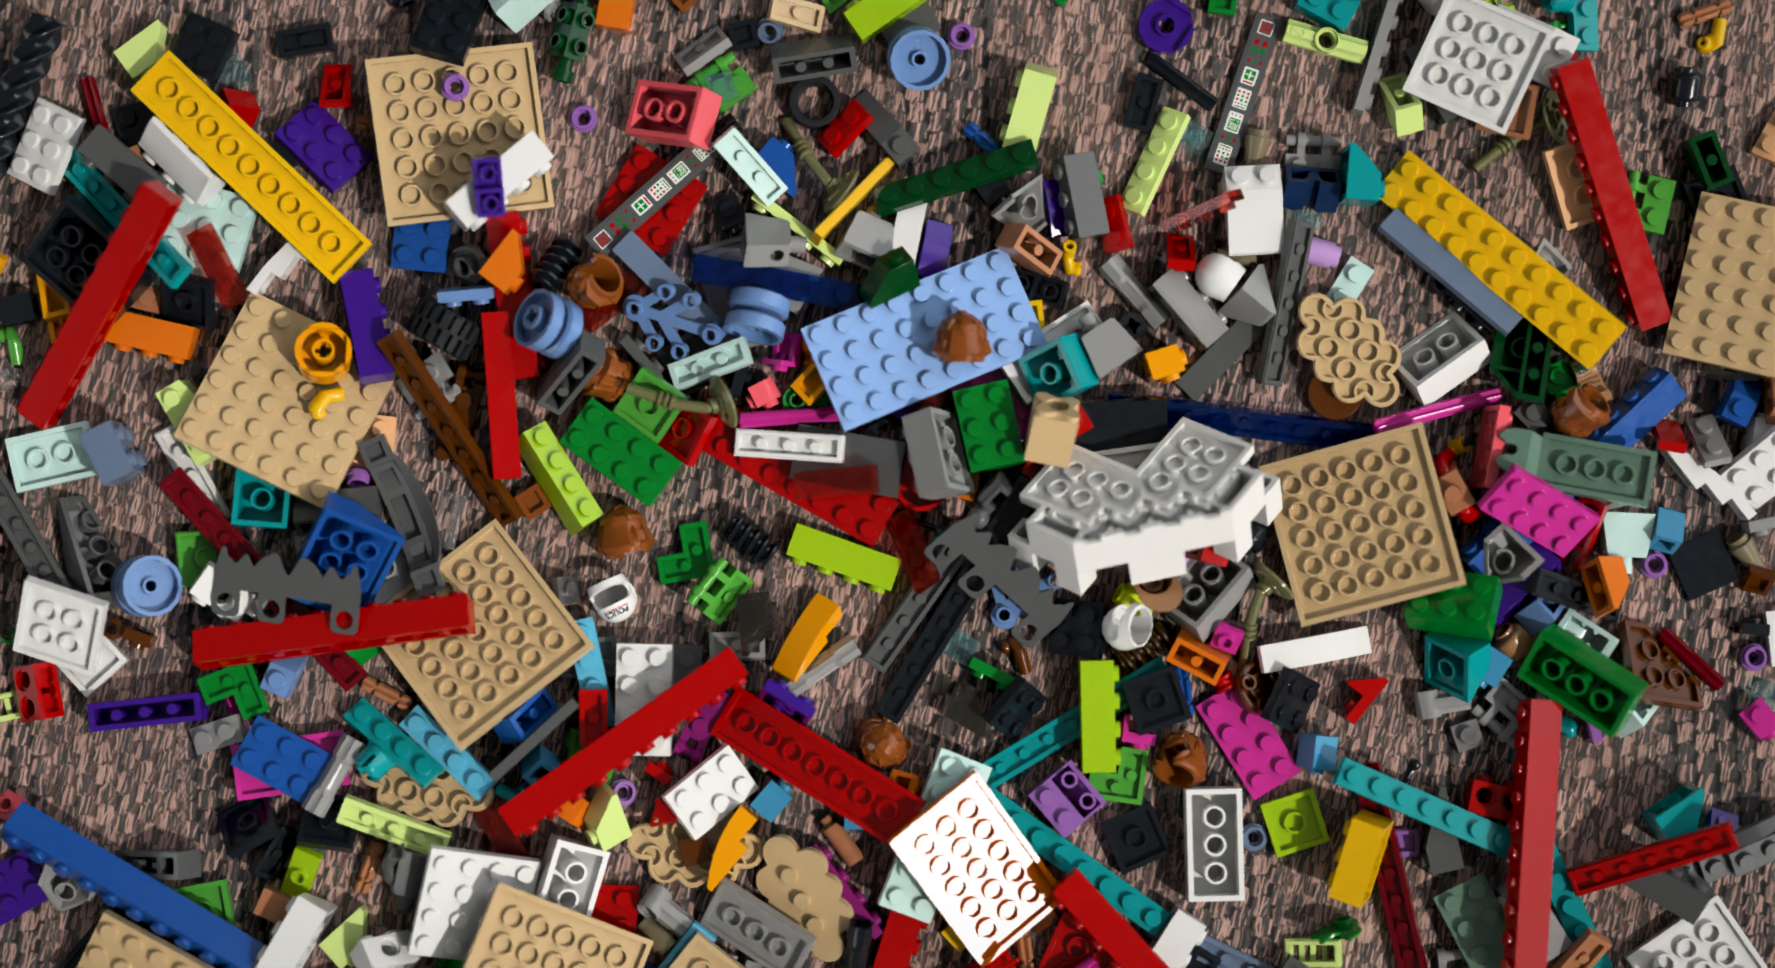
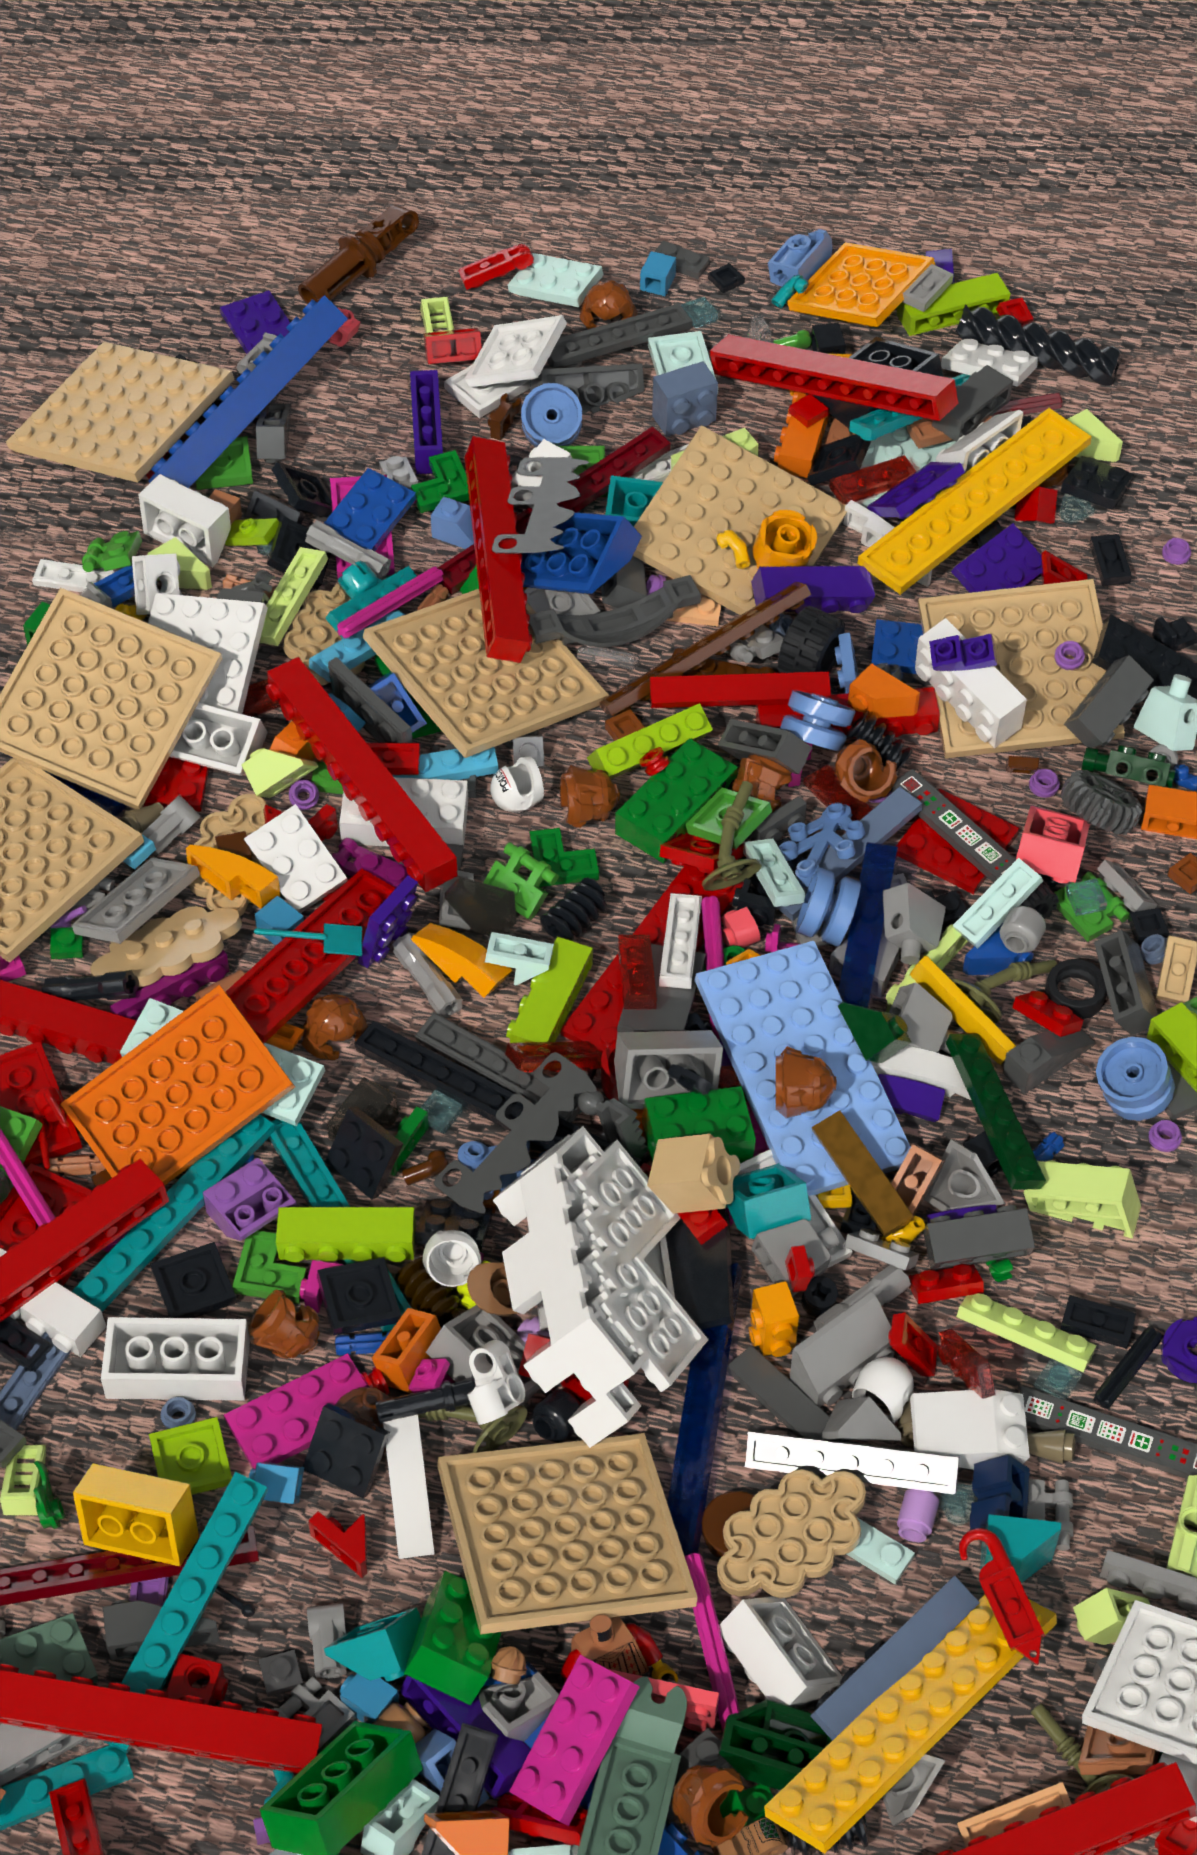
camera: 95 degrees right, 35 degrees down
(129, 329) = (808, 410): none -> red tile
(242, 225) = (917, 489): none -> dark purple plate
(402, 729) = (389, 602): none -> dark pink axle
(512, 54) = (1109, 702): none -> dark grey brick
(566, 137) = (1024, 765): none -> reddish brown tile
(587, 478) = (654, 761): none -> red bush
(618, 68) = (1101, 802): none -> dark grey gear
(775, 145) = (1022, 929): none -> light grey head
(801, 744) = (337, 938): none -> teal piece
(810, 586) = (524, 954): none -> light aqua slope
(957, 432) = (689, 1080): none -> black tile
(1032, 290) = (862, 1173): none -> pearl gold tile
(1090, 275) = (893, 1253): none -> light grey plate
(1134, 342) = (799, 1268): none -> red plate
(1250, 622) = (445, 1397): none -> black pin
(1254, 582) = (497, 1385): none -> white piece
(1413, 187) = (1006, 1596): none -> red plate
(1483, 562) = (508, 1665): none -> medium nougat plate

